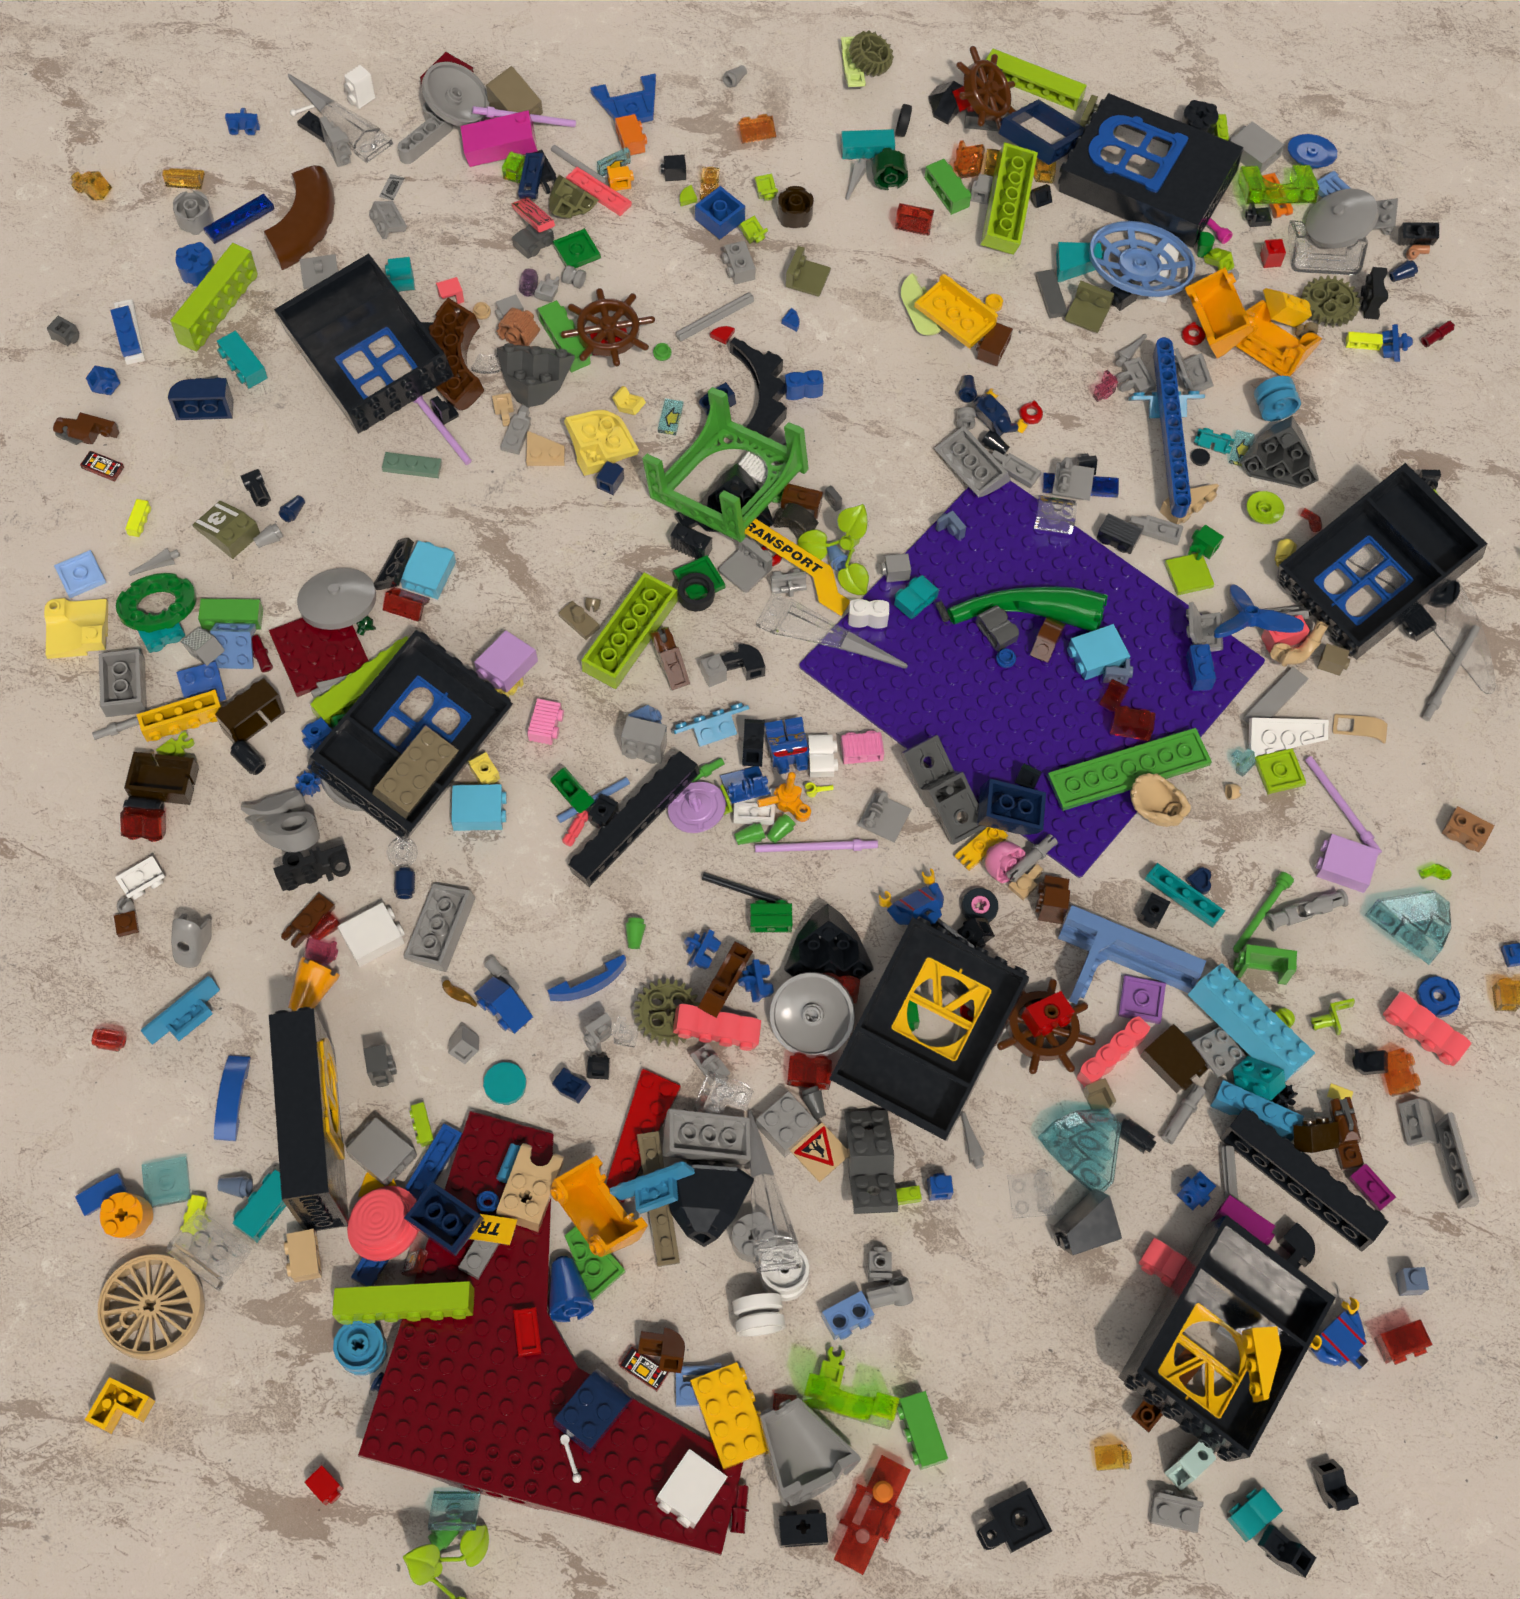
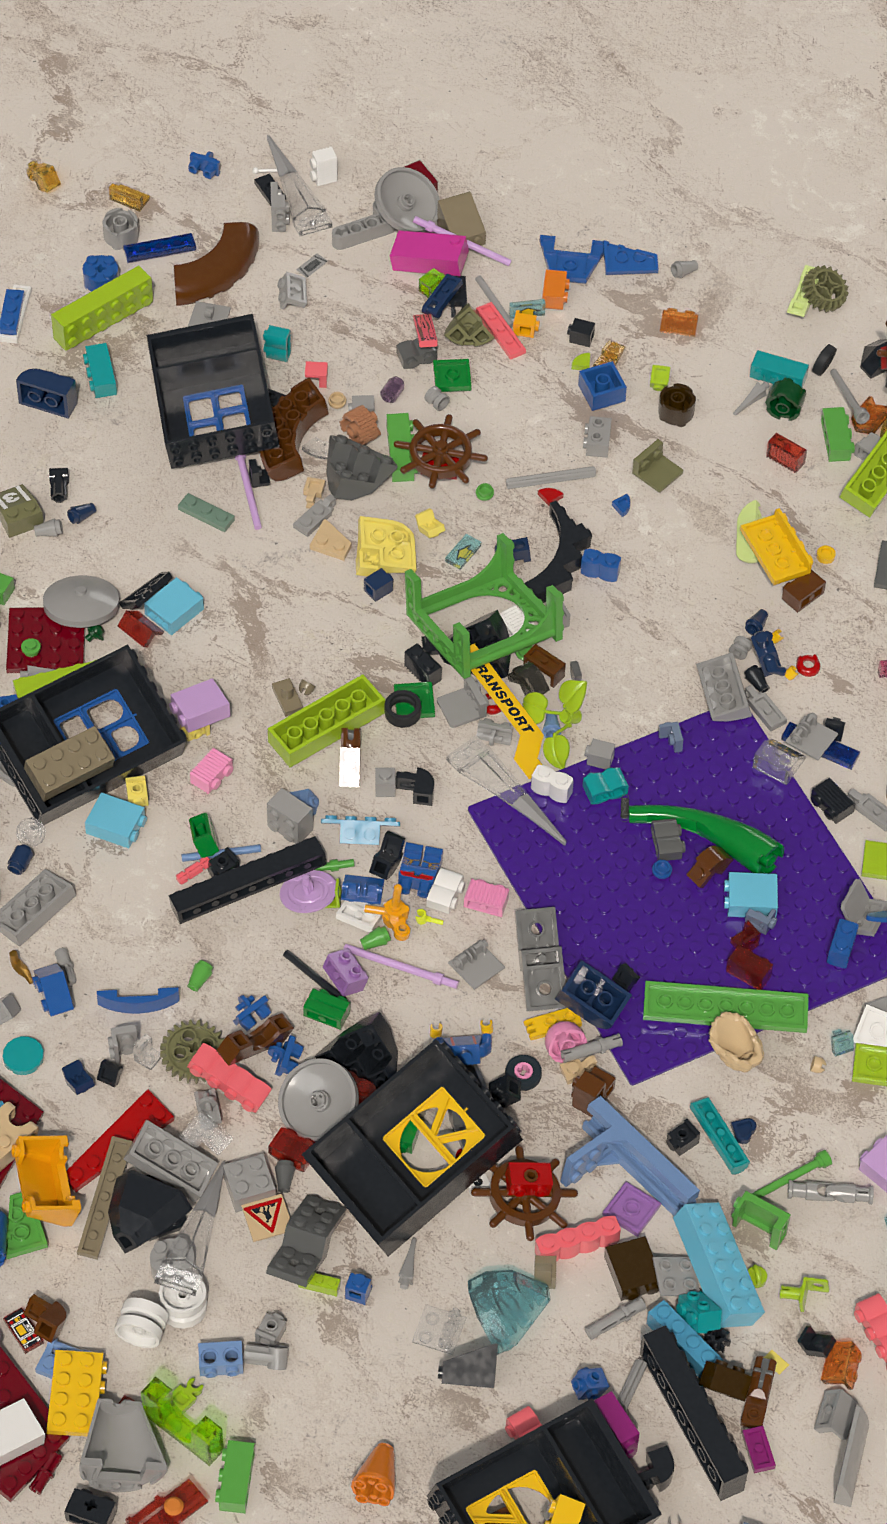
camera: 25 degrees right, 10 degrees down
(311, 663) = (30, 647): none -> bright green plate
(547, 289) = (406, 402): light grey plate -> none
(654, 1188) = (102, 1181): dark azure bracket -> none
(682, 86) = (623, 260): none -> blue wing
(750, 834) = (346, 933): bright green cone -> none
(753, 230) = (626, 412): lime bracket -> none
(771, 874) = (345, 972): none -> medium lavender brick
(963, 159) = (860, 414): none -> light grey piece
(1052, 1371) = (376, 1477): none -> orange cone
(1137, 1136) = (561, 1318): black head -> none

